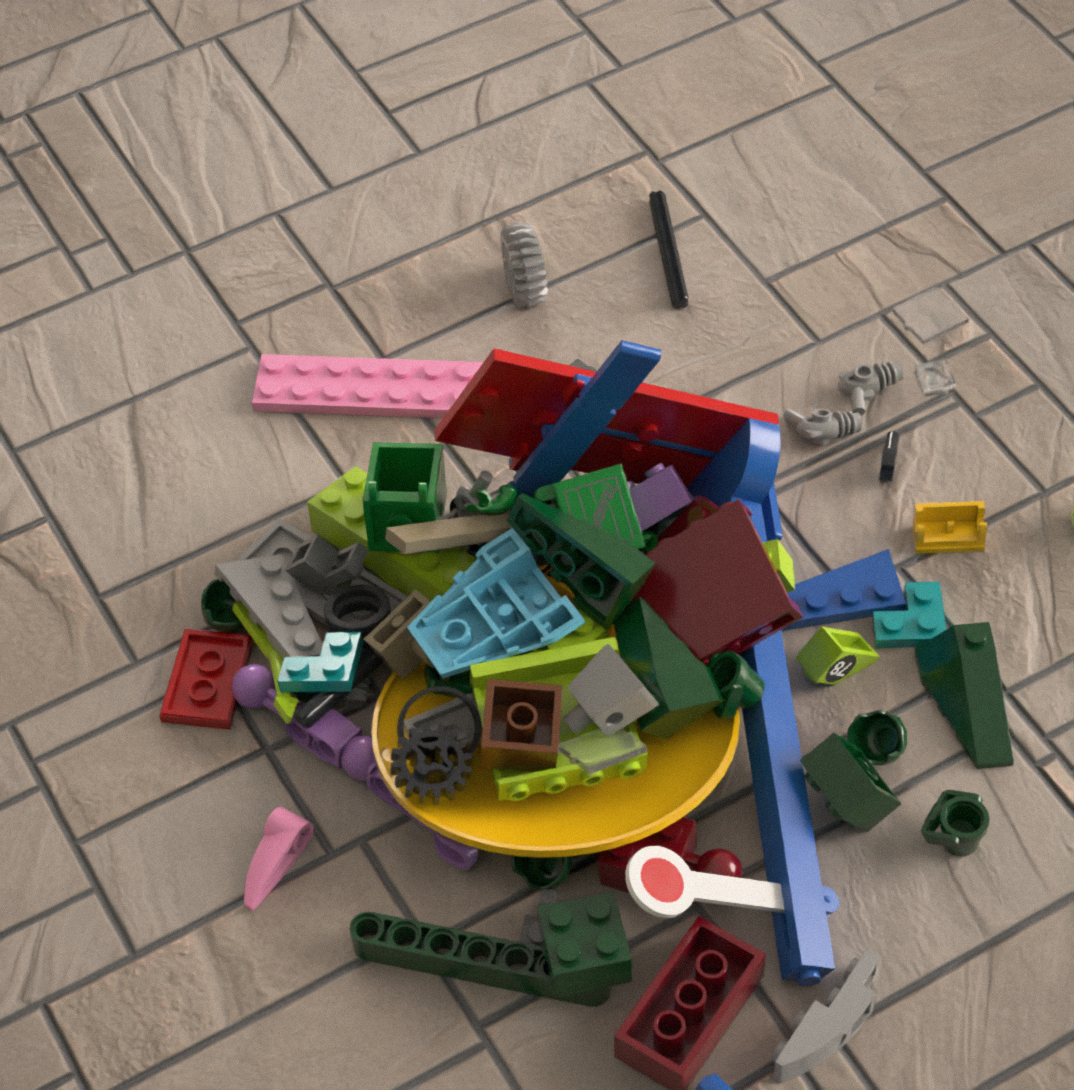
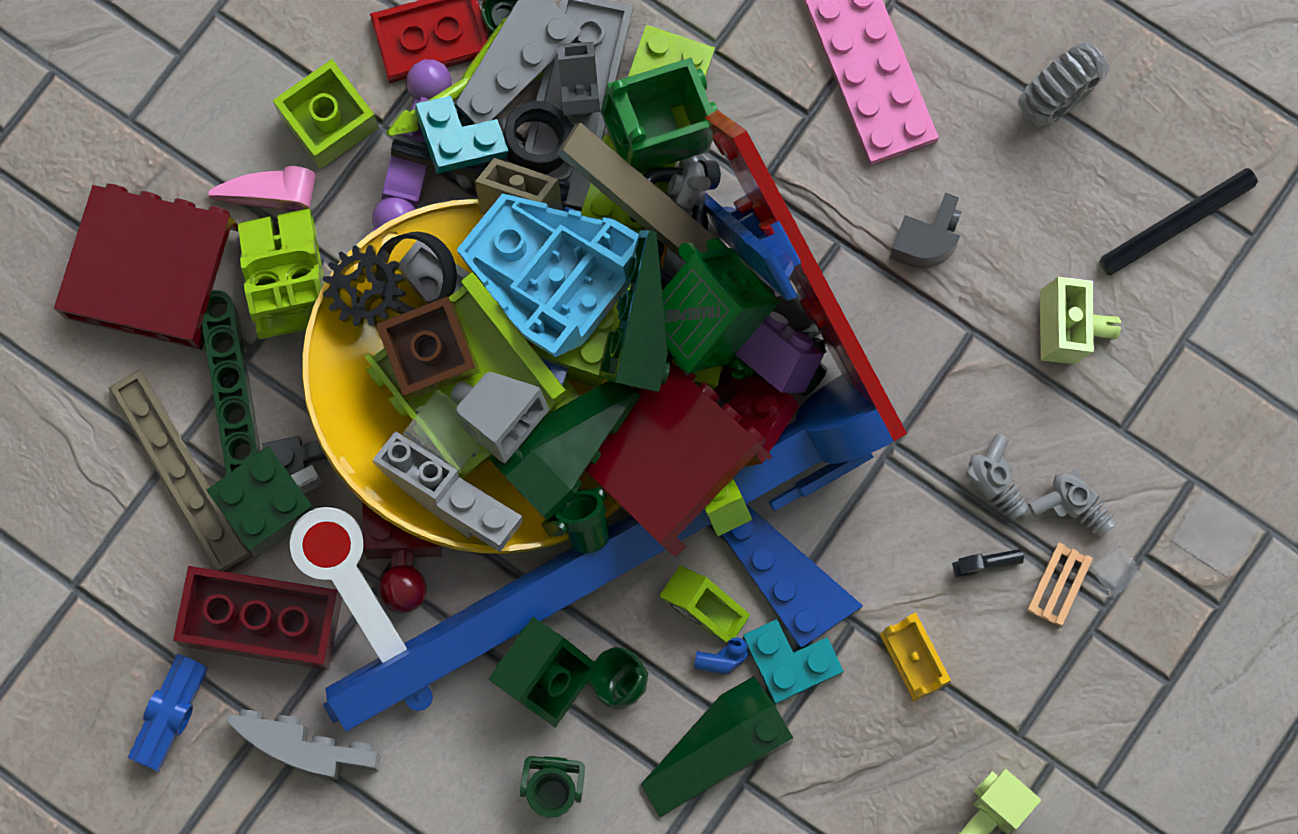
camera: 65 degrees right, 25 degrees up
(234, 774) = (326, 114): none -> lime brick
(292, 977) = (144, 265): none -> dark red panel
(357, 865) = (281, 271): none -> lime connector
(500, 504) = (691, 211): green arm -> none
(504, 1035) = (178, 471): none -> dark tan tile
(659, 771) = (445, 494): none -> light grey slope
(716, 331) = (1069, 321): none -> yellowish green brick
(891, 661) = (725, 660): none -> blue arm
(932, 417) = (1072, 556): none -> light nougat tile

